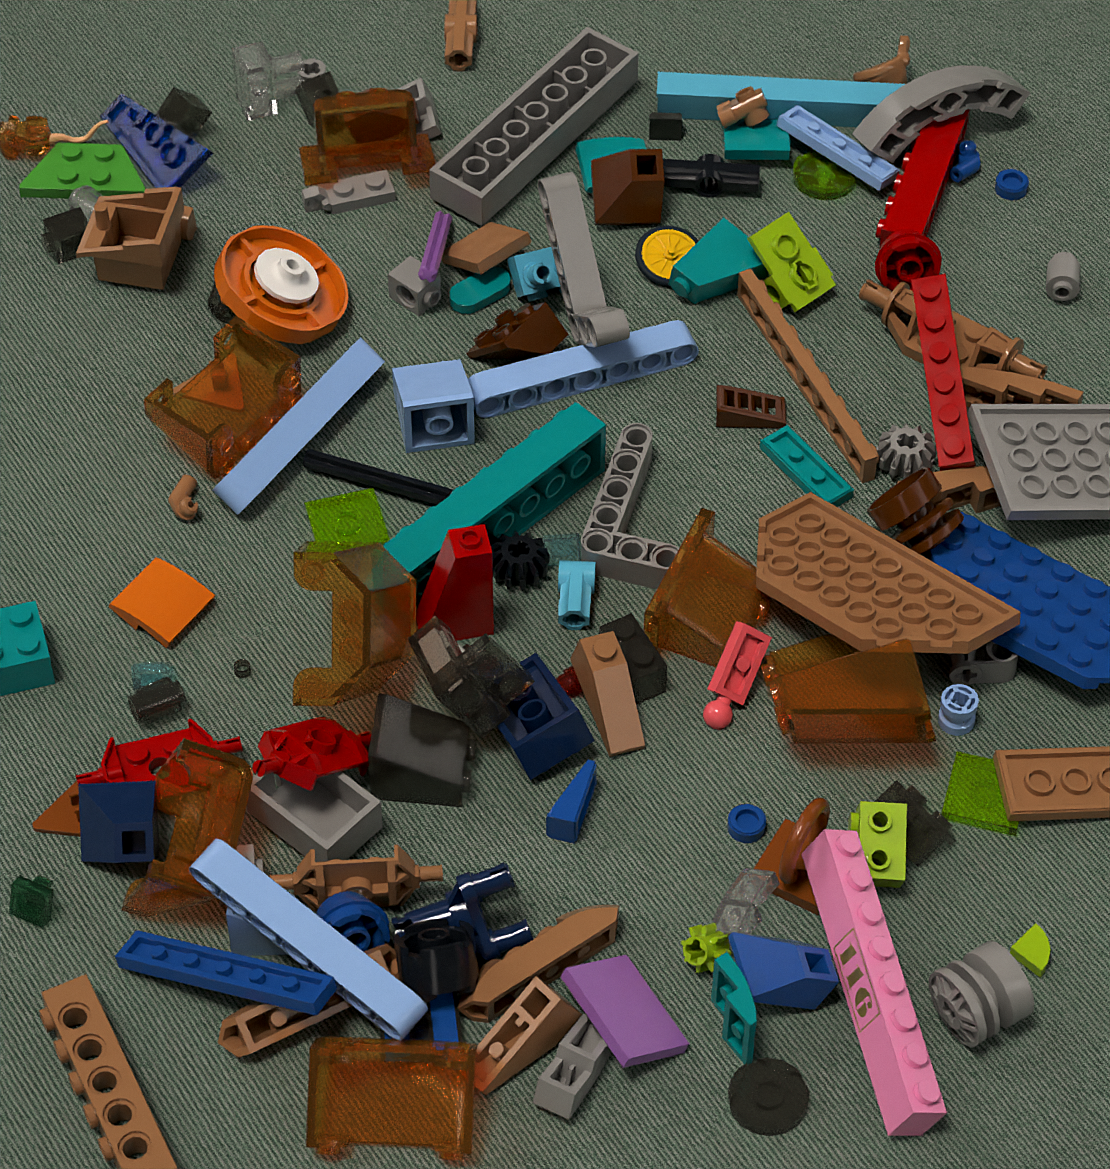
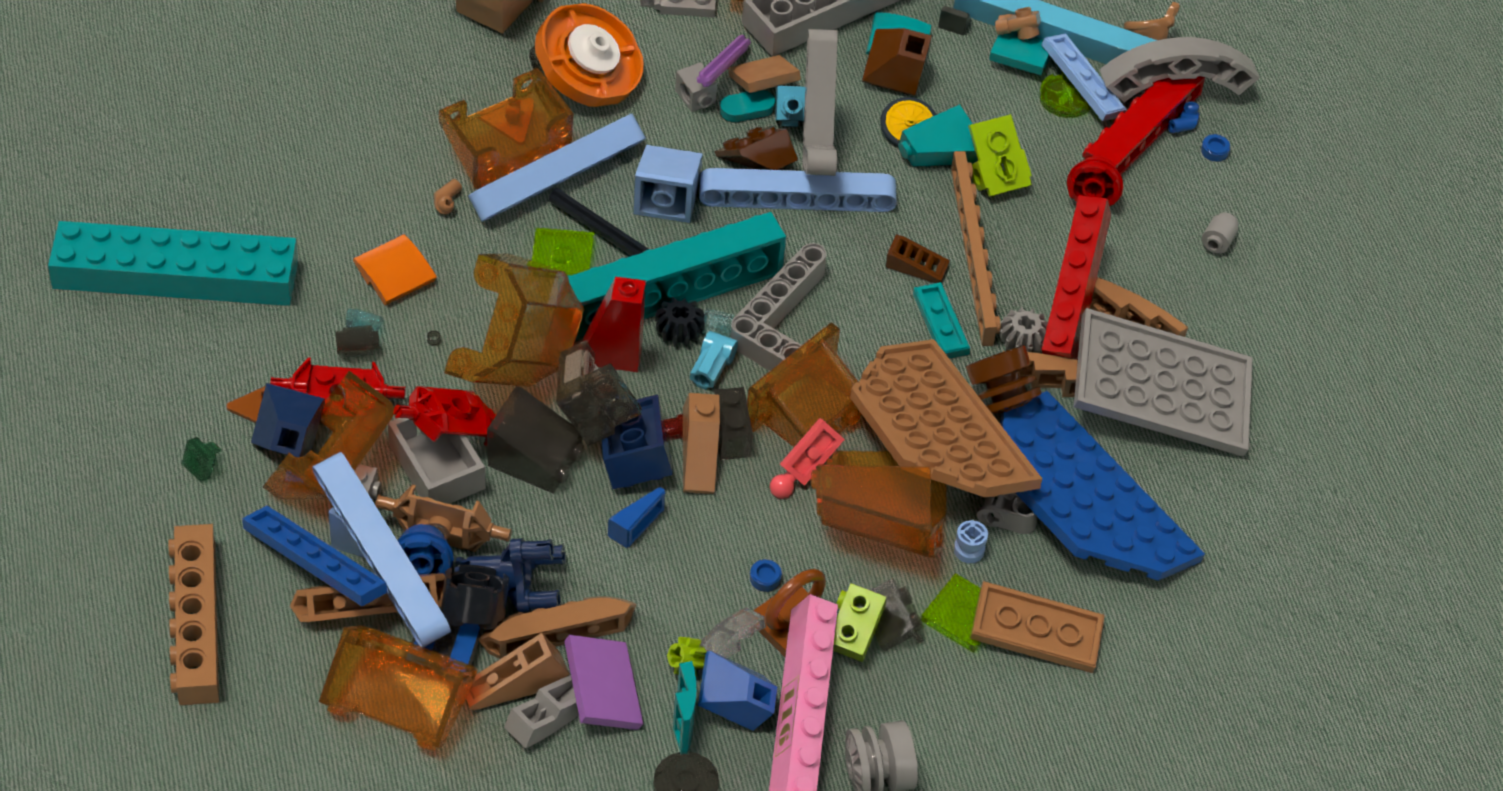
camera: 15 degrees right, 0 degrees up
(711, 175) = (970, 69): black piece -> none
(972, 338) = (1118, 257): medium nougat plate -> none
(1033, 950) = (943, 742): lime tile -> none

